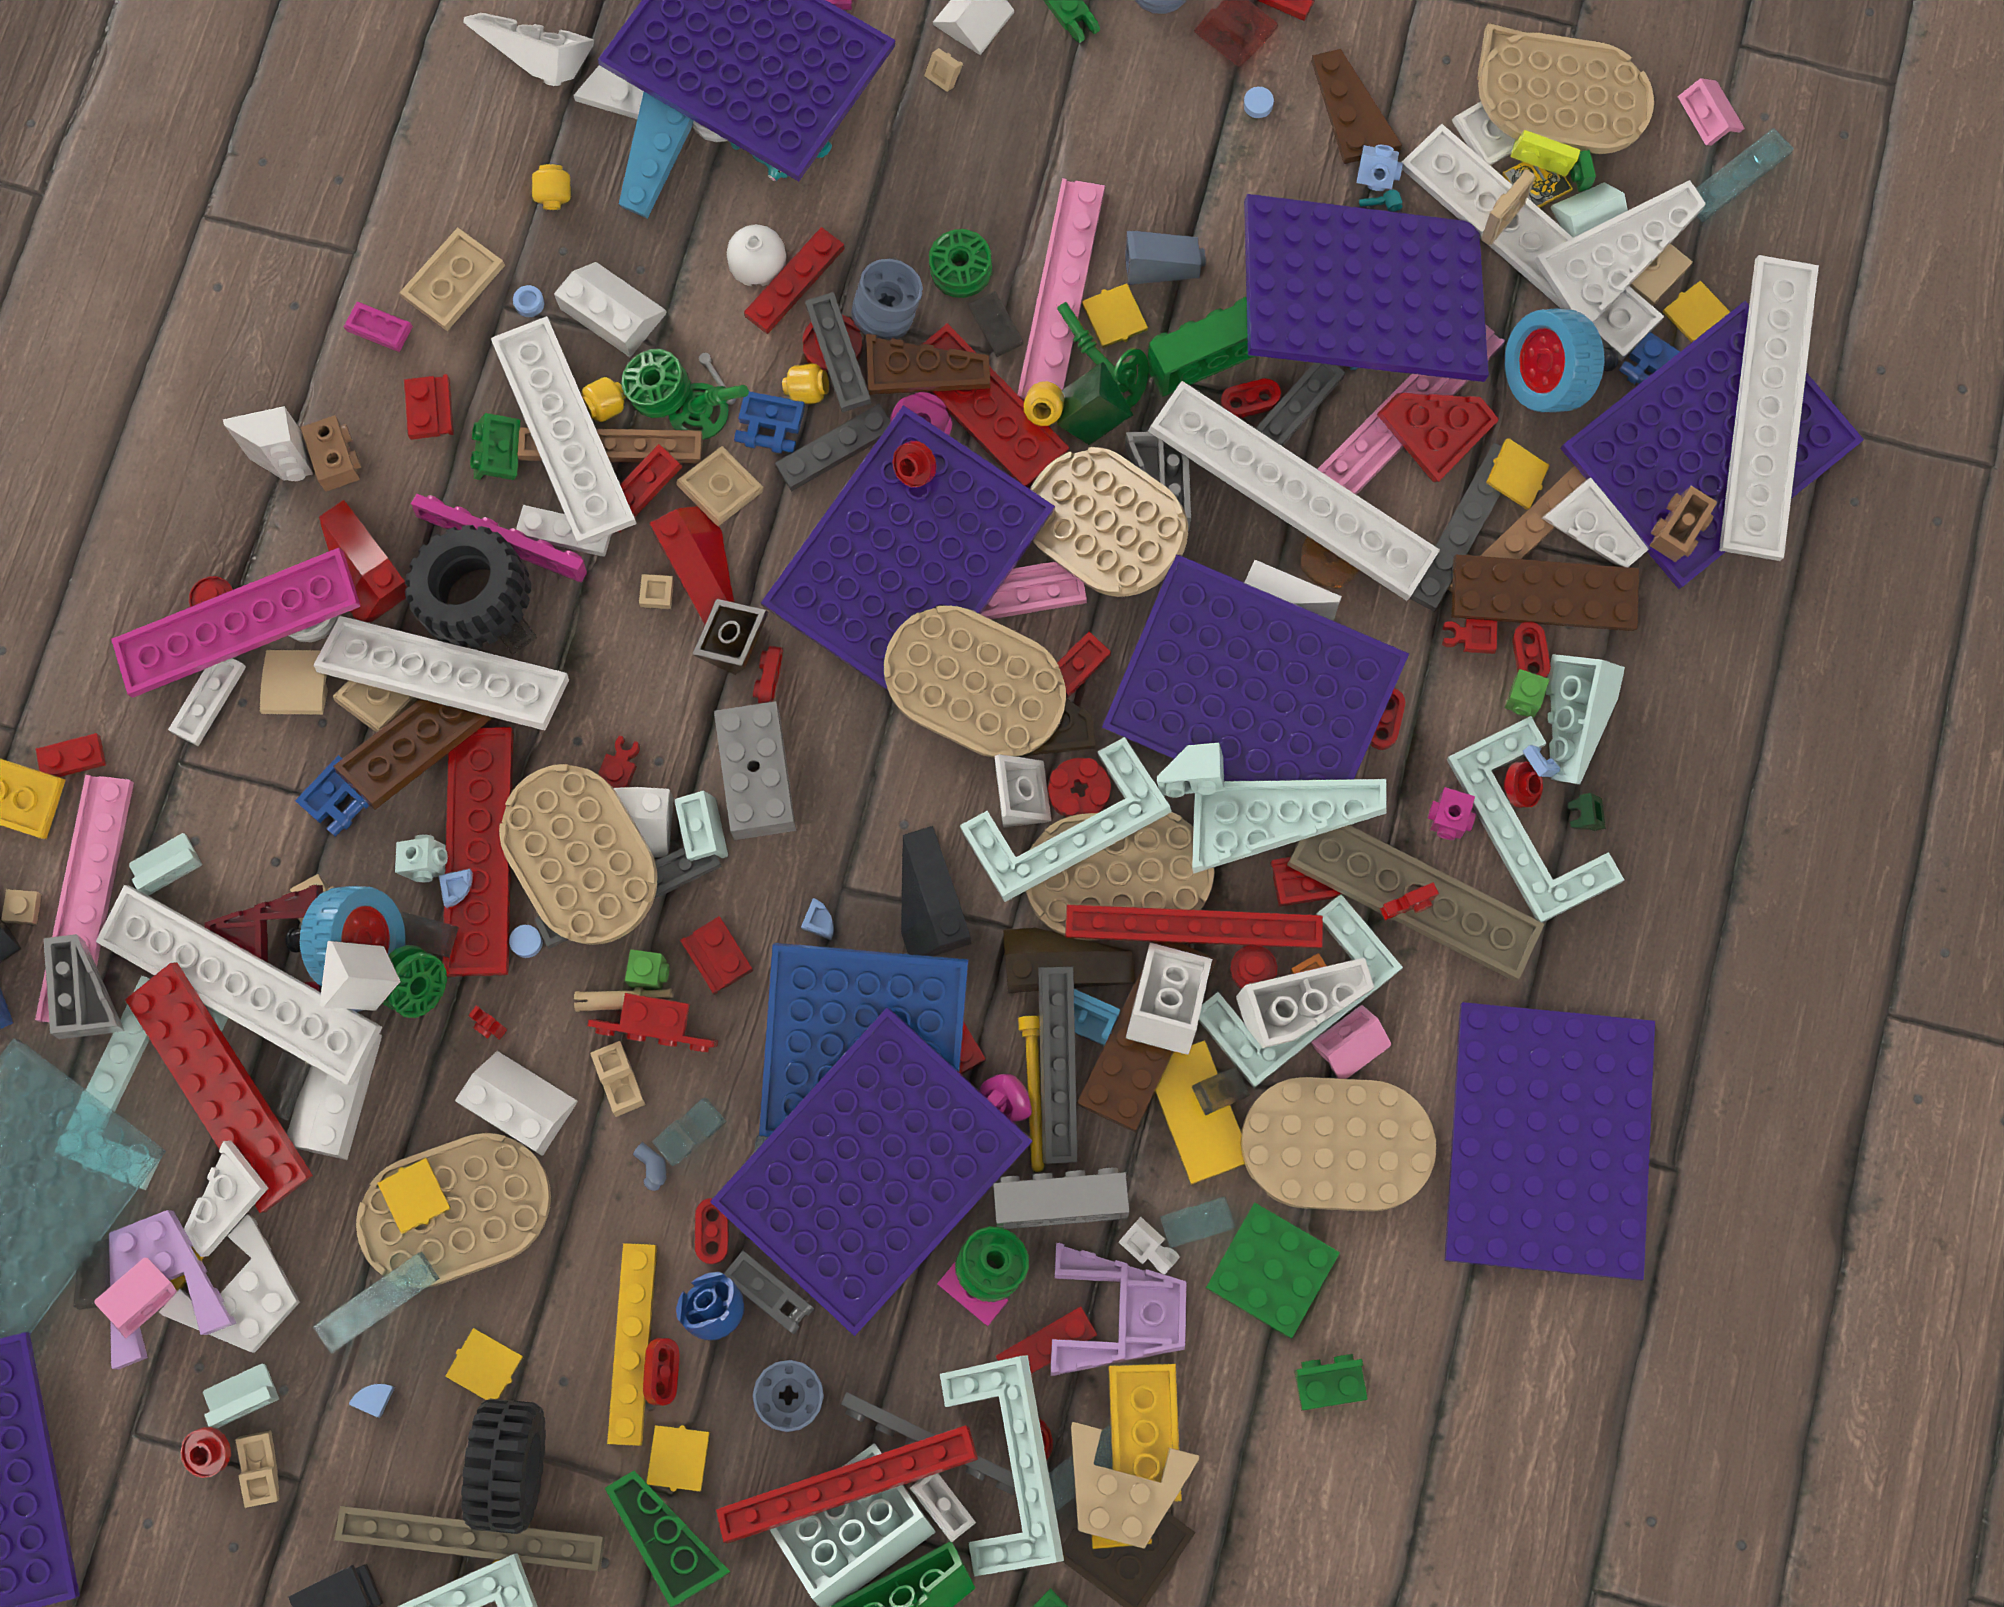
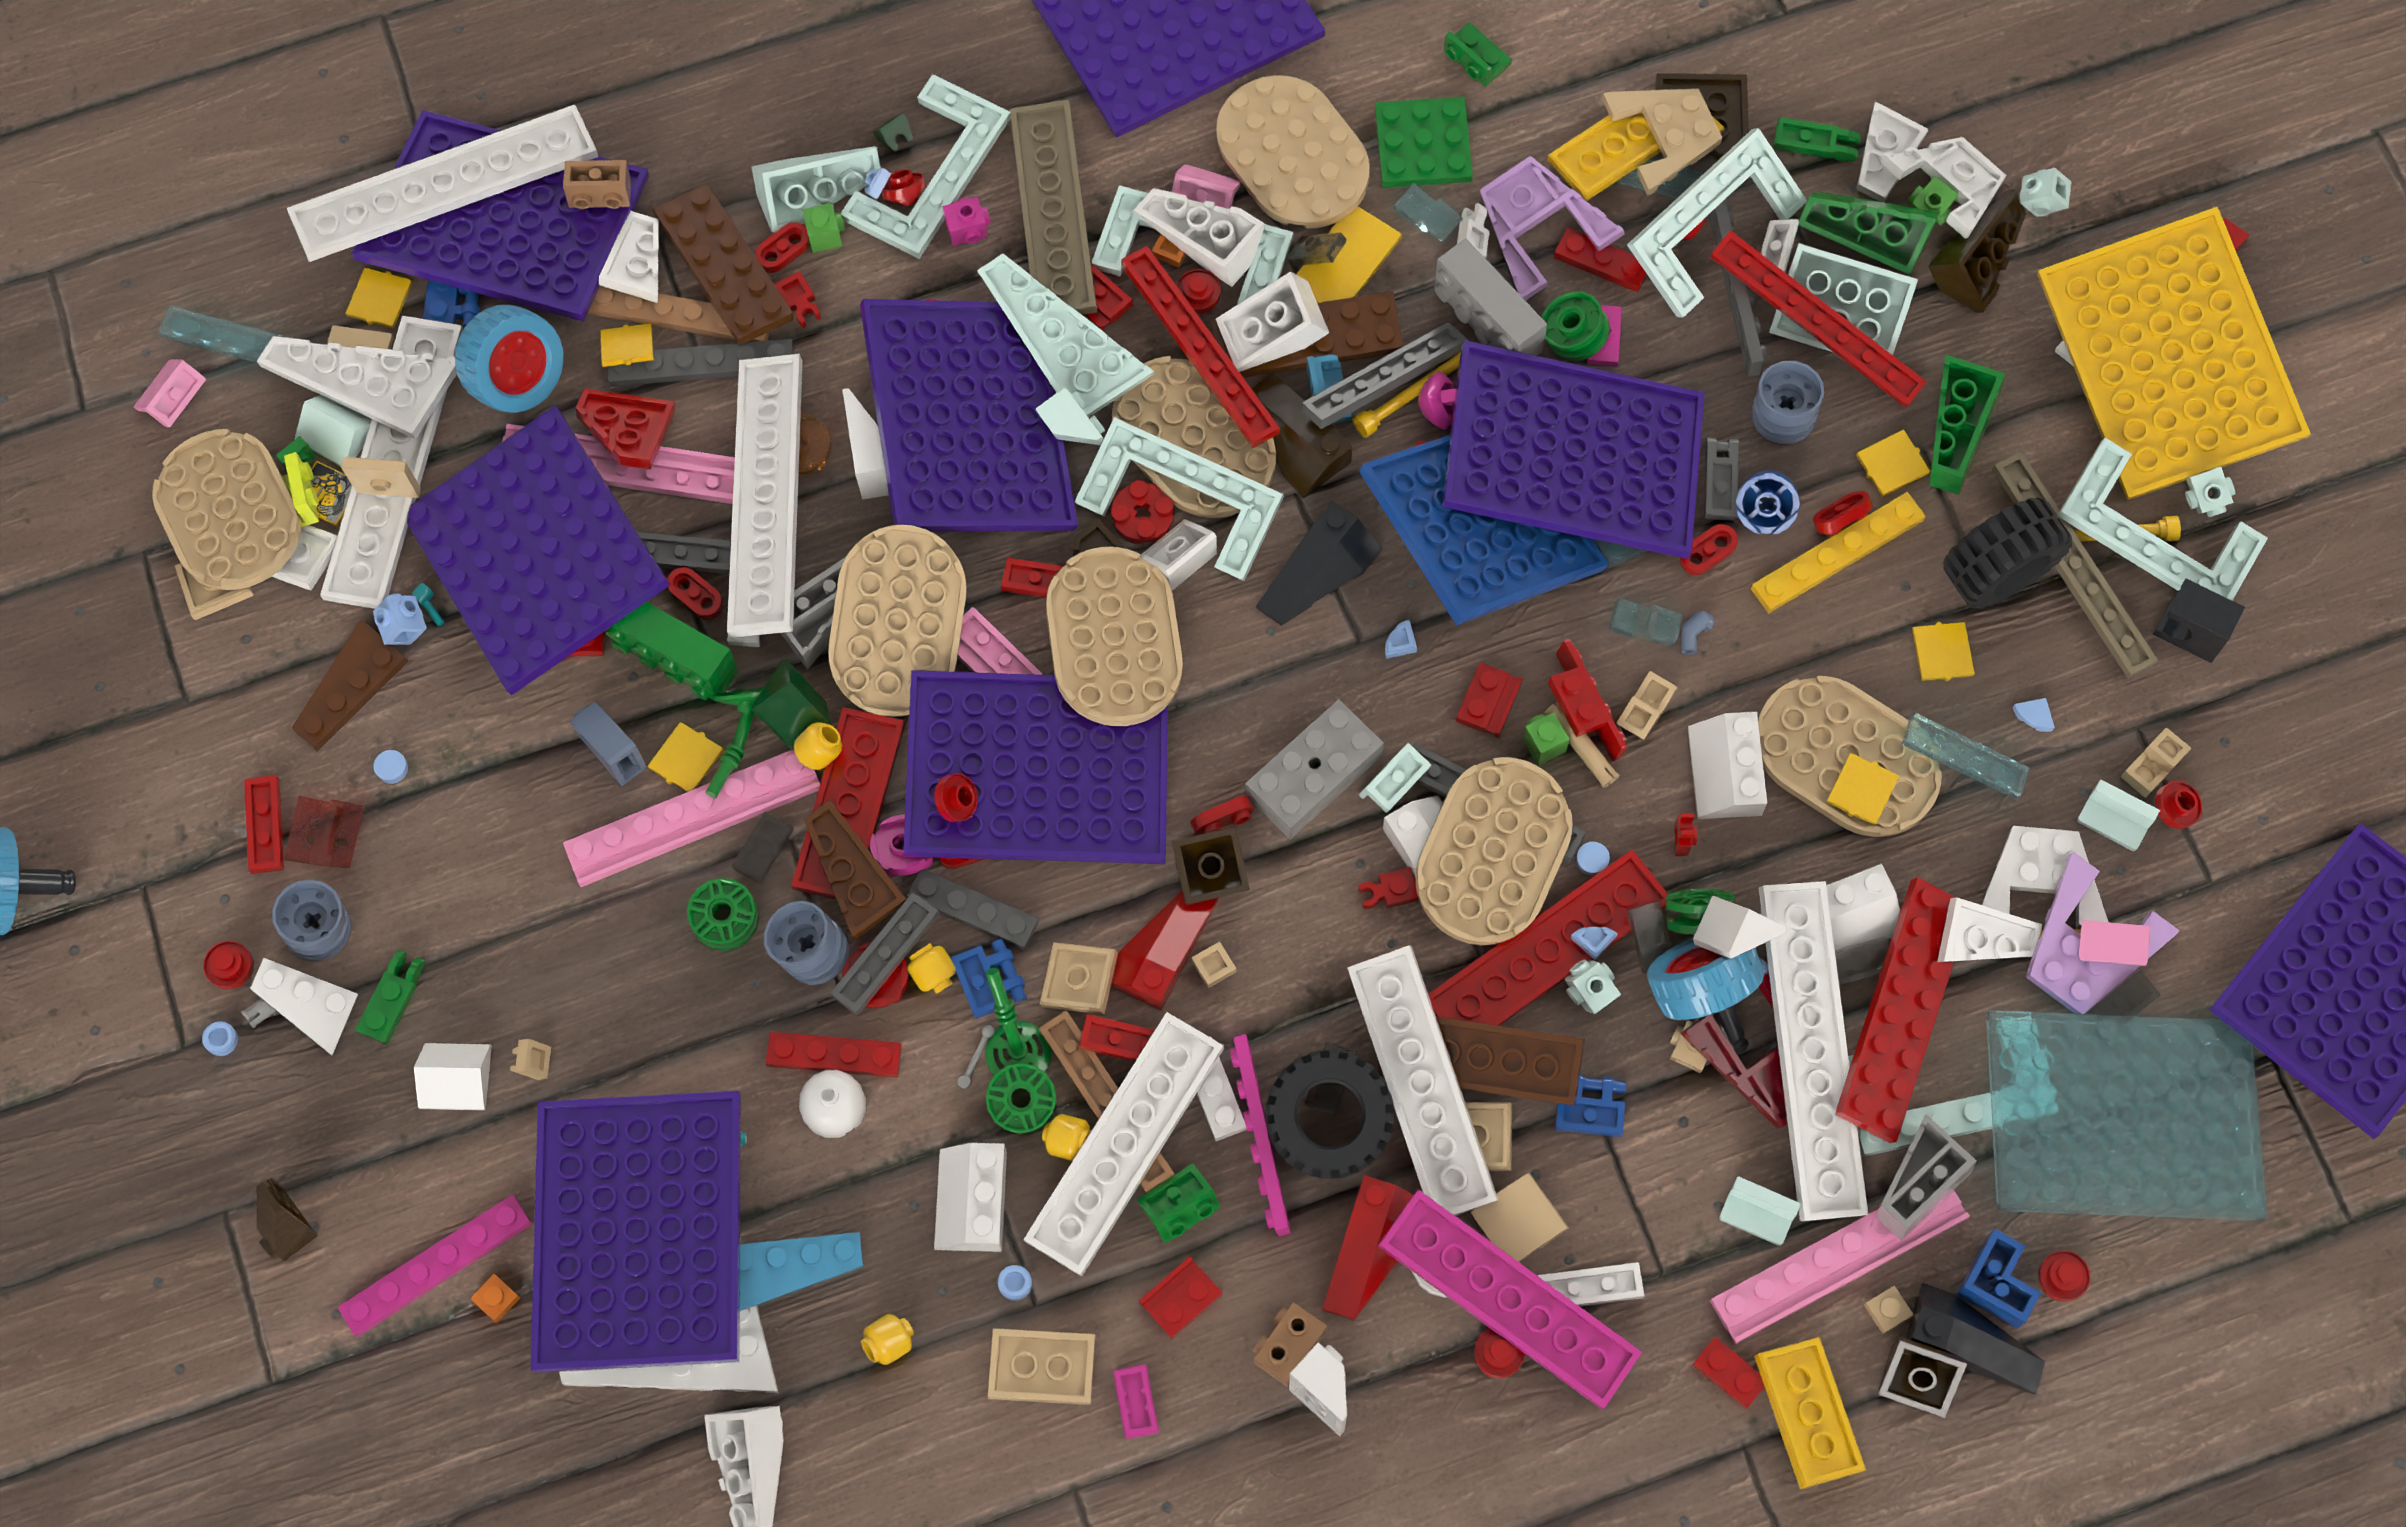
camera: 125 degrees left, 5 degrees down
(1417, 899) = (1062, 196): red plate -> none

